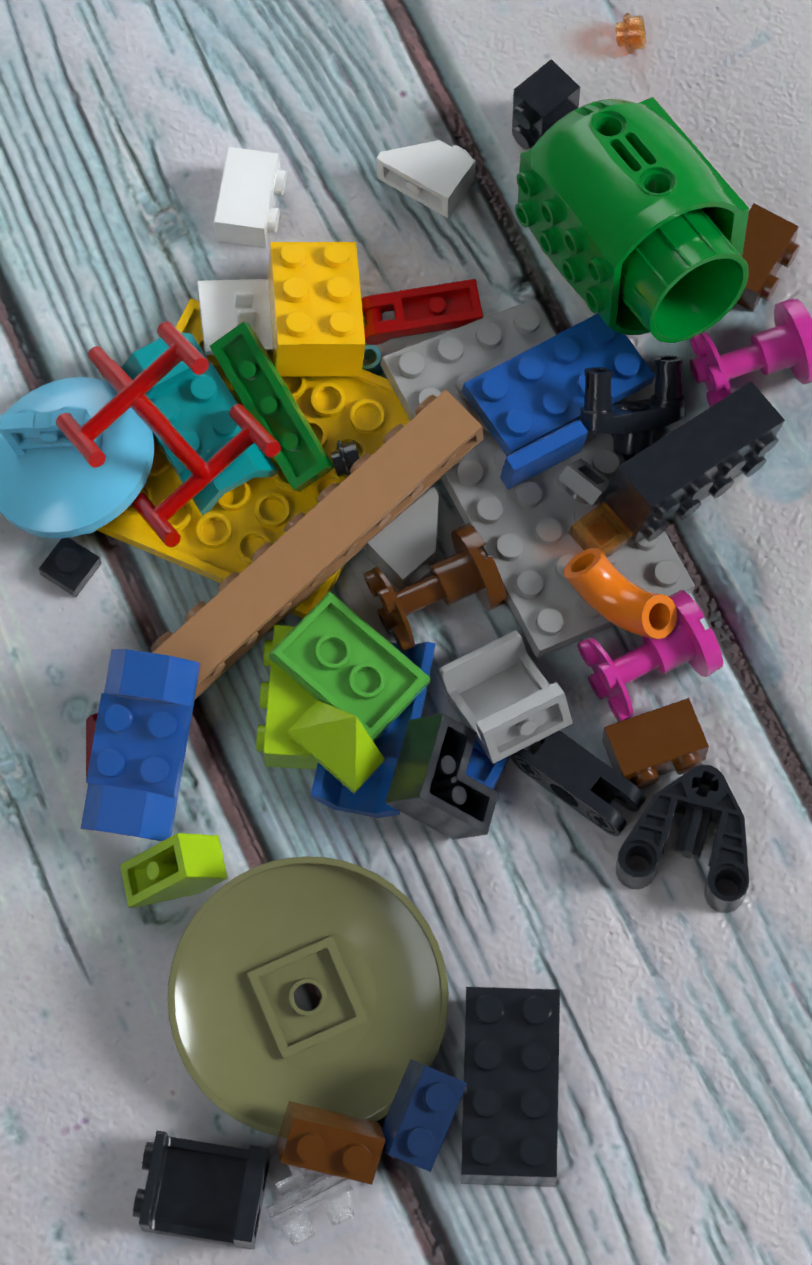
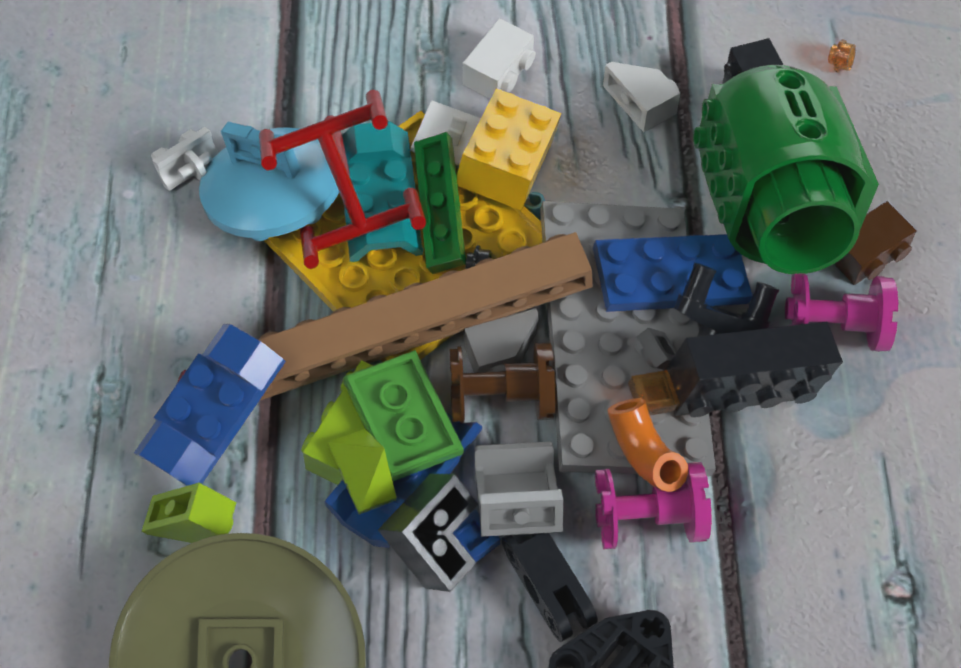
camera: 20 degrees right, 10 degrees down
(70, 566) = (234, 261): black plate -> none
(421, 310) = (589, 183): red plate -> none
(543, 454) = (634, 315): blue tile -> none
(656, 743) = (626, 579): reddish brown brick -> none

